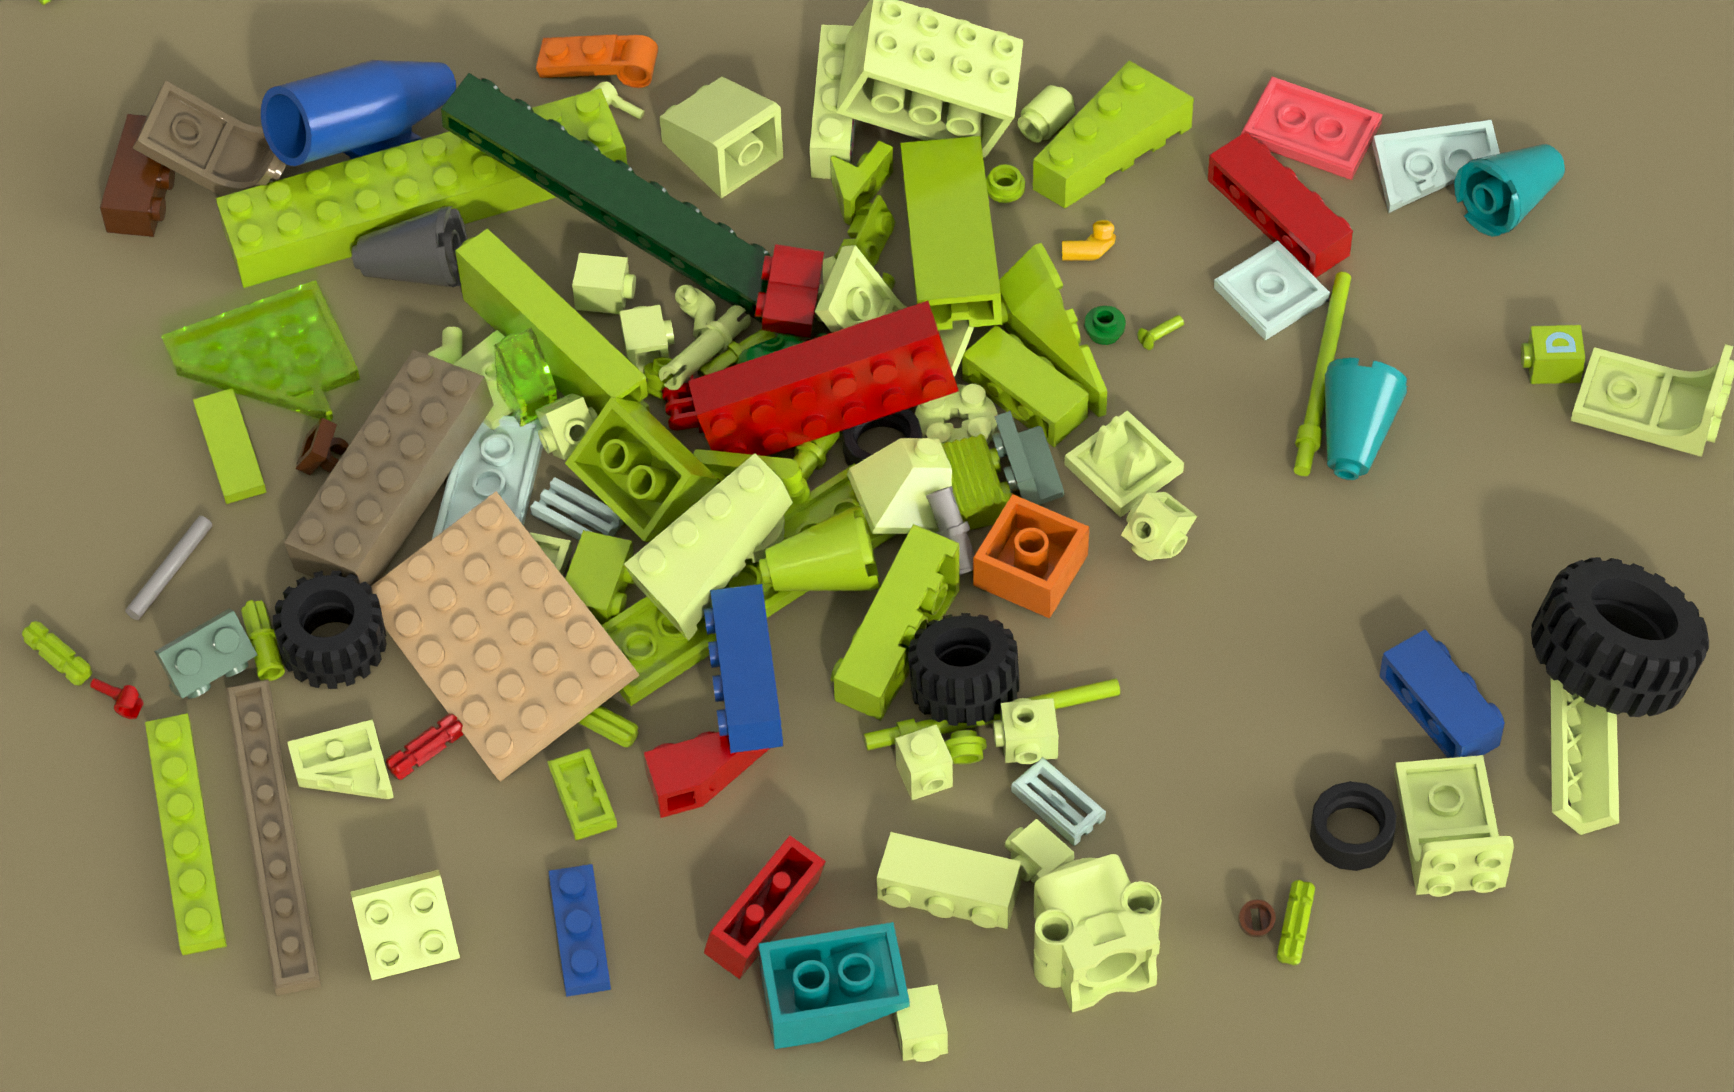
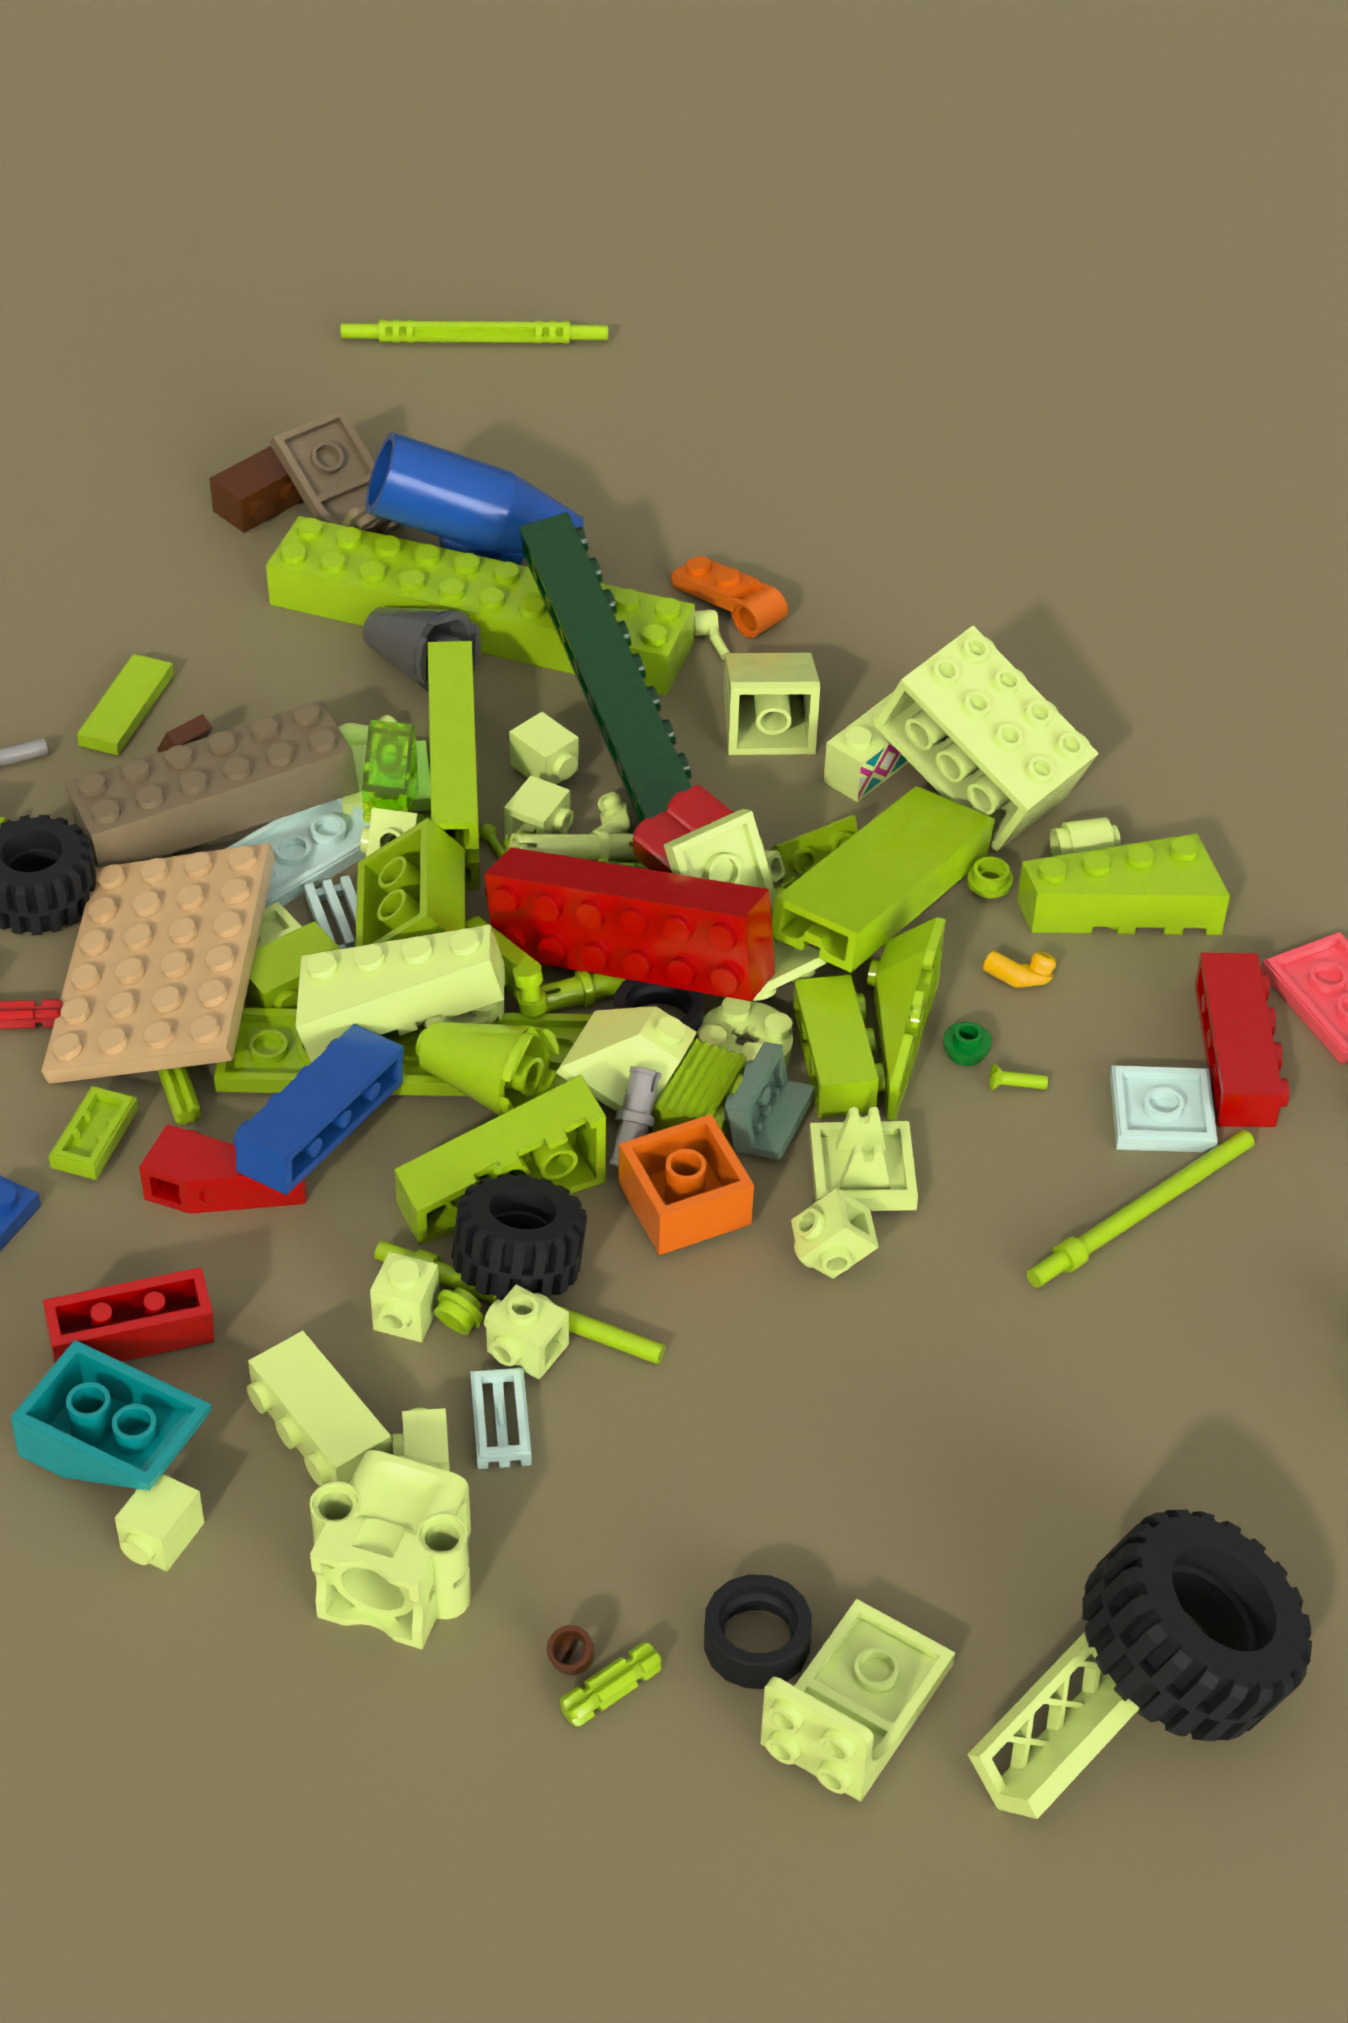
camera: 35 degrees right, 10 degrees down
(270, 351) = (232, 654): clear neon green wing -> none
(860, 183) = (863, 799): lime slope -> none
(1359, 413) = (1134, 1257): teal cone -> none
(1441, 697) = (970, 1571): blue brick -> none

